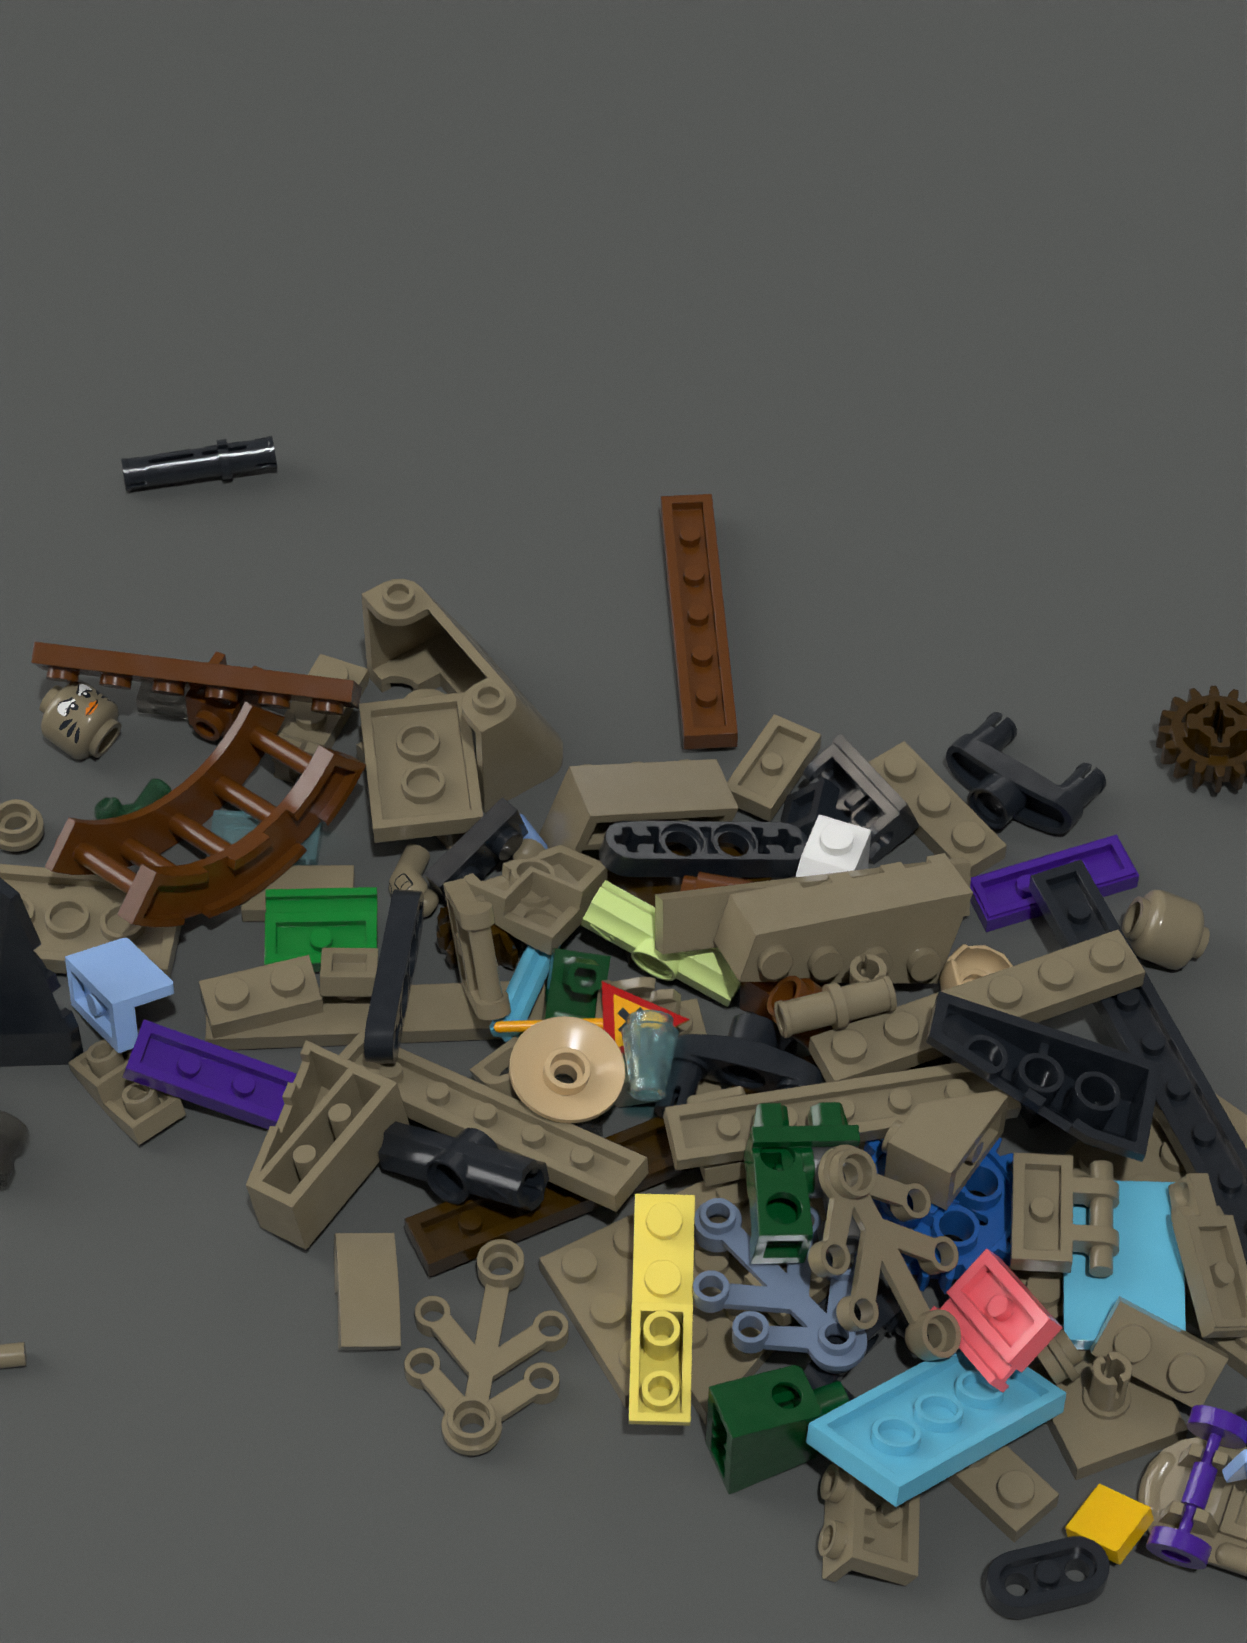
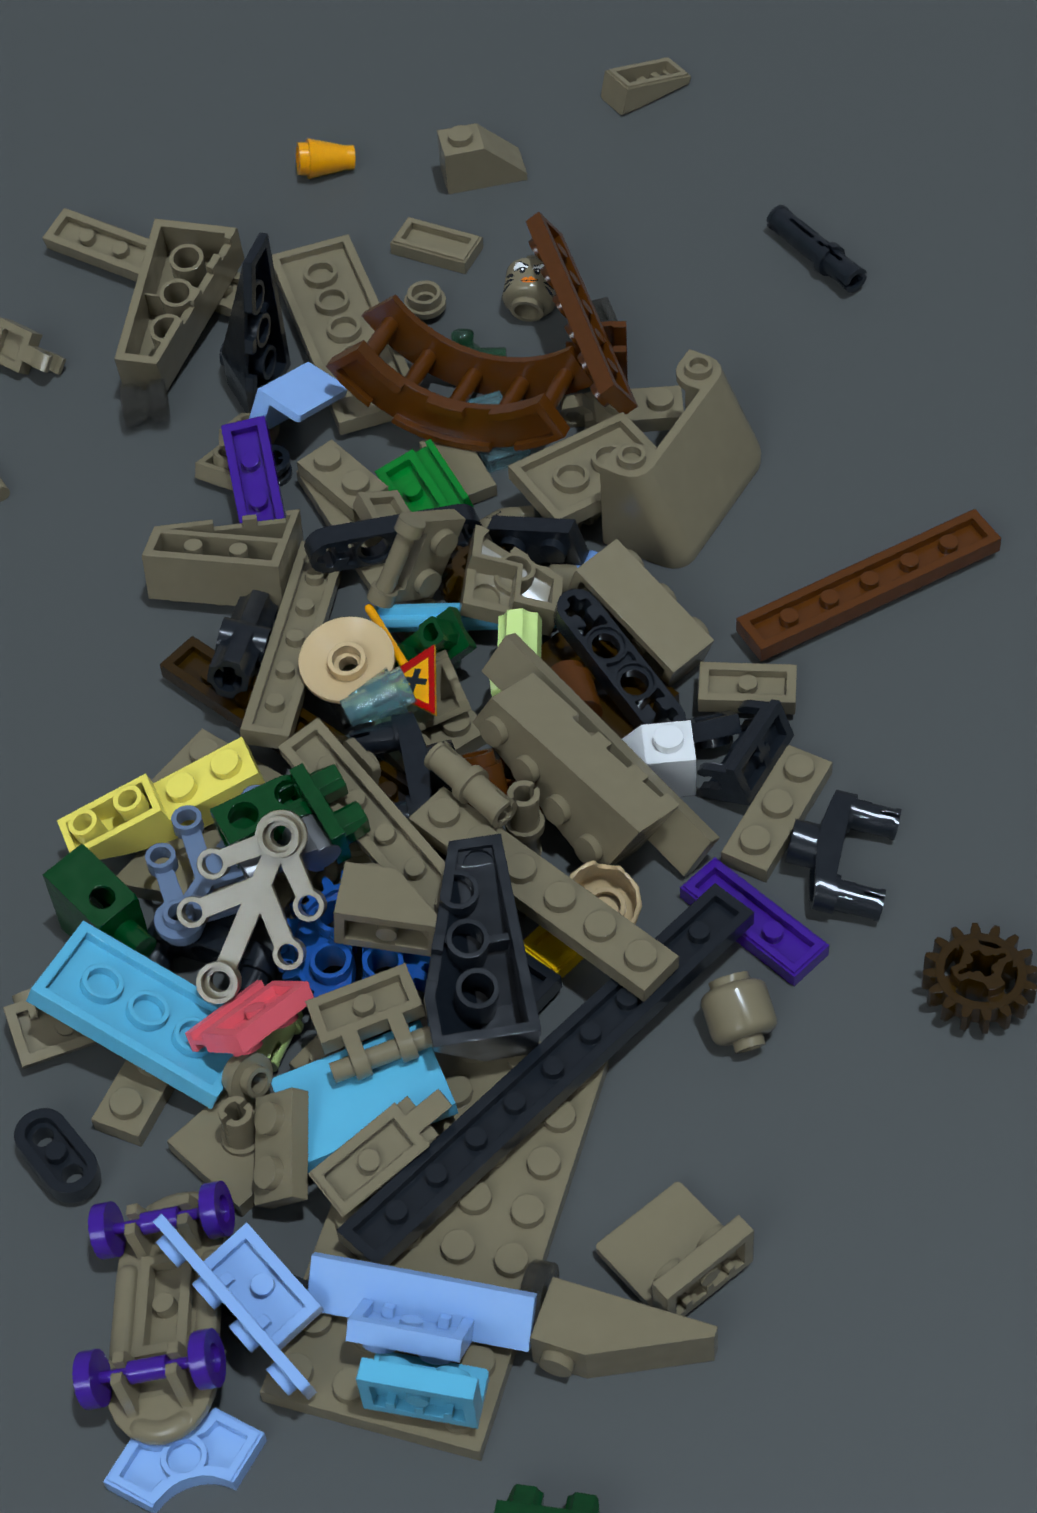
camera: 70 degrees right, 0 degrees up
(367, 1291) = (129, 637): dark tan slope -> none
(486, 1358) = (56, 745): dark tan plant -> none
(1111, 1521) = (126, 1180): yellow tile -> none

